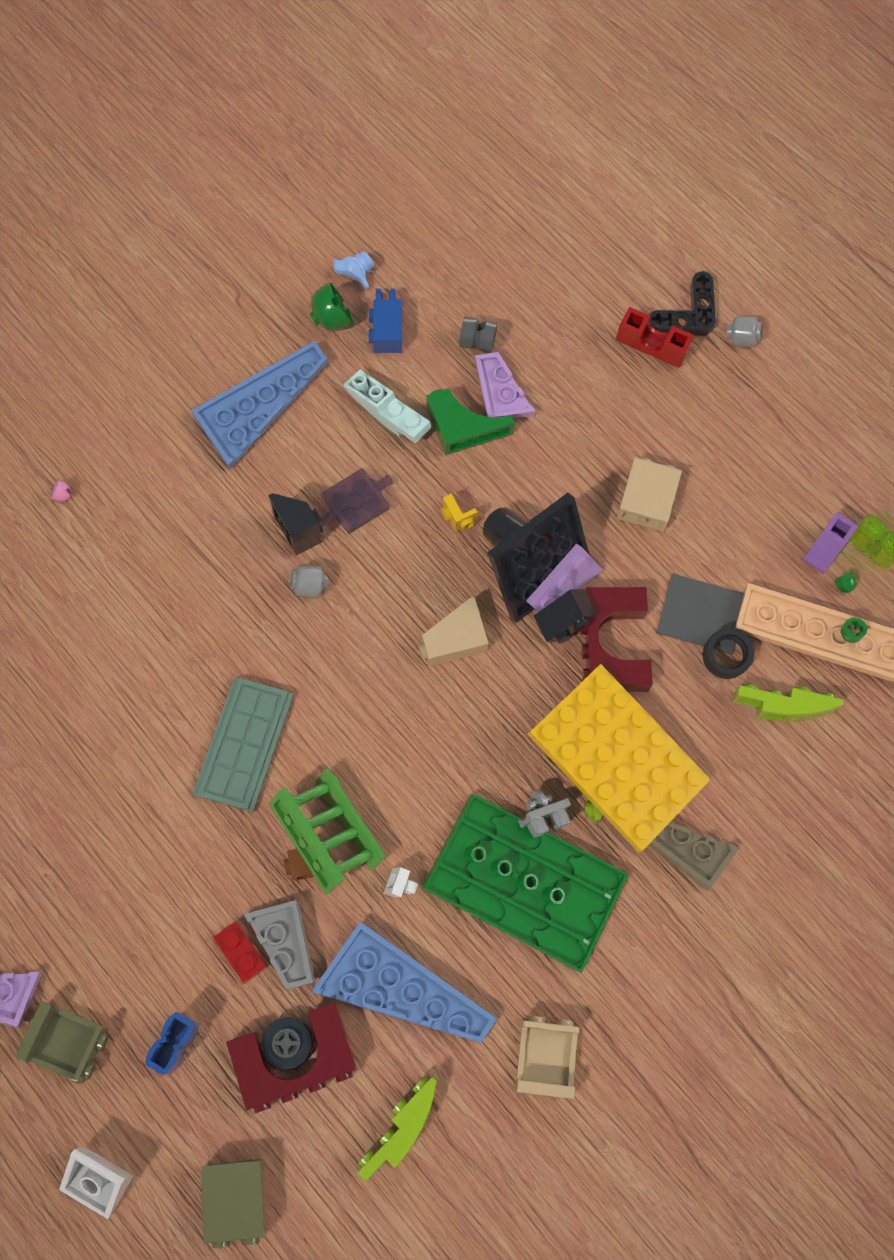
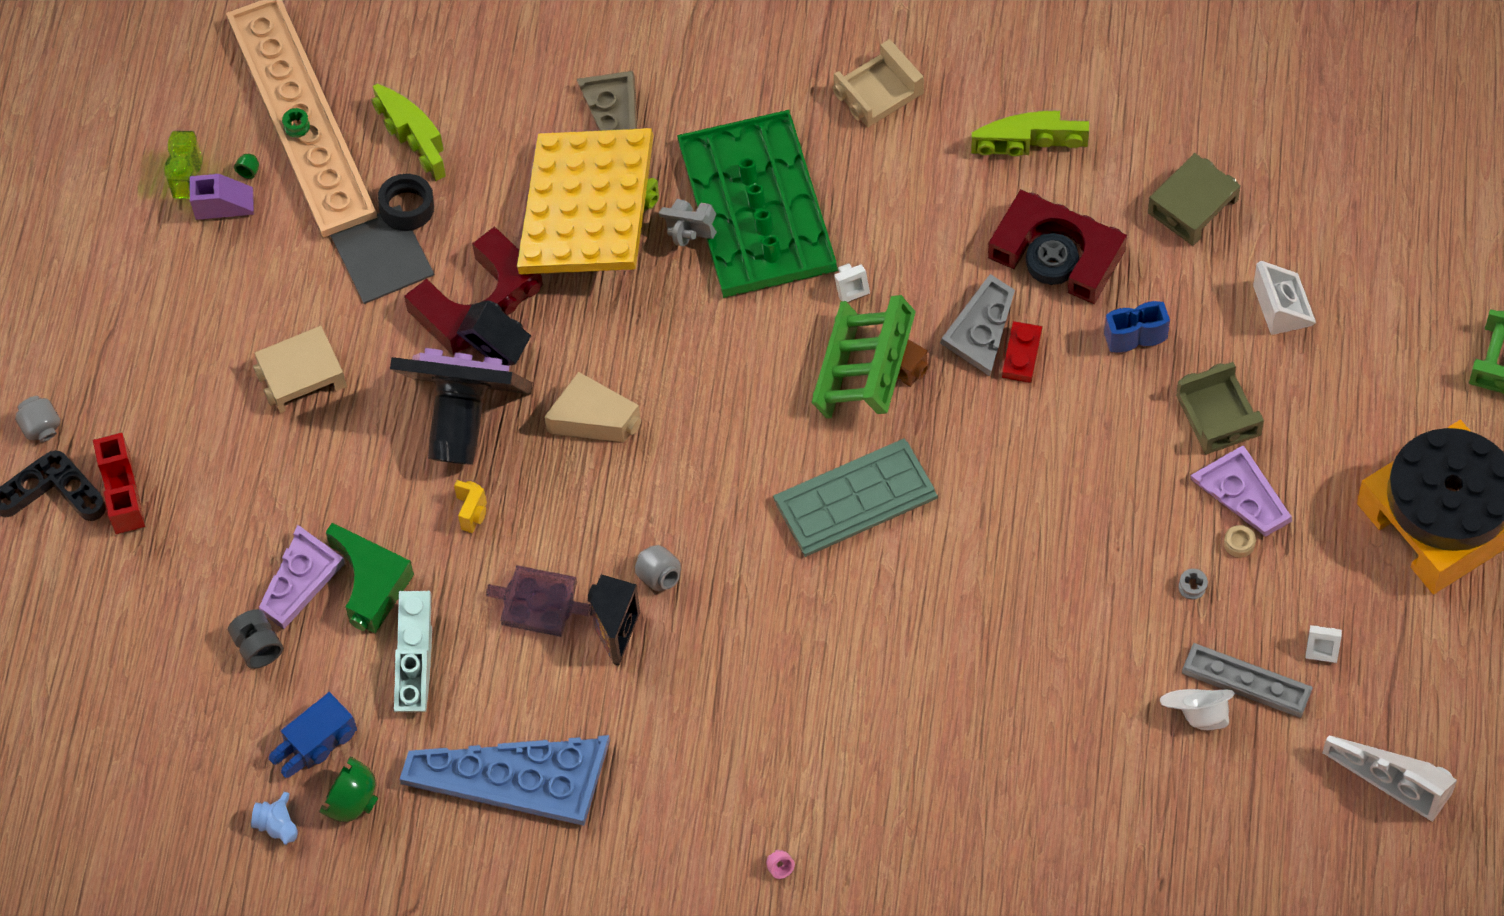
camera: 125 degrees left, 10 degrees down
(388, 981) = (931, 225): medium blue wing -> none

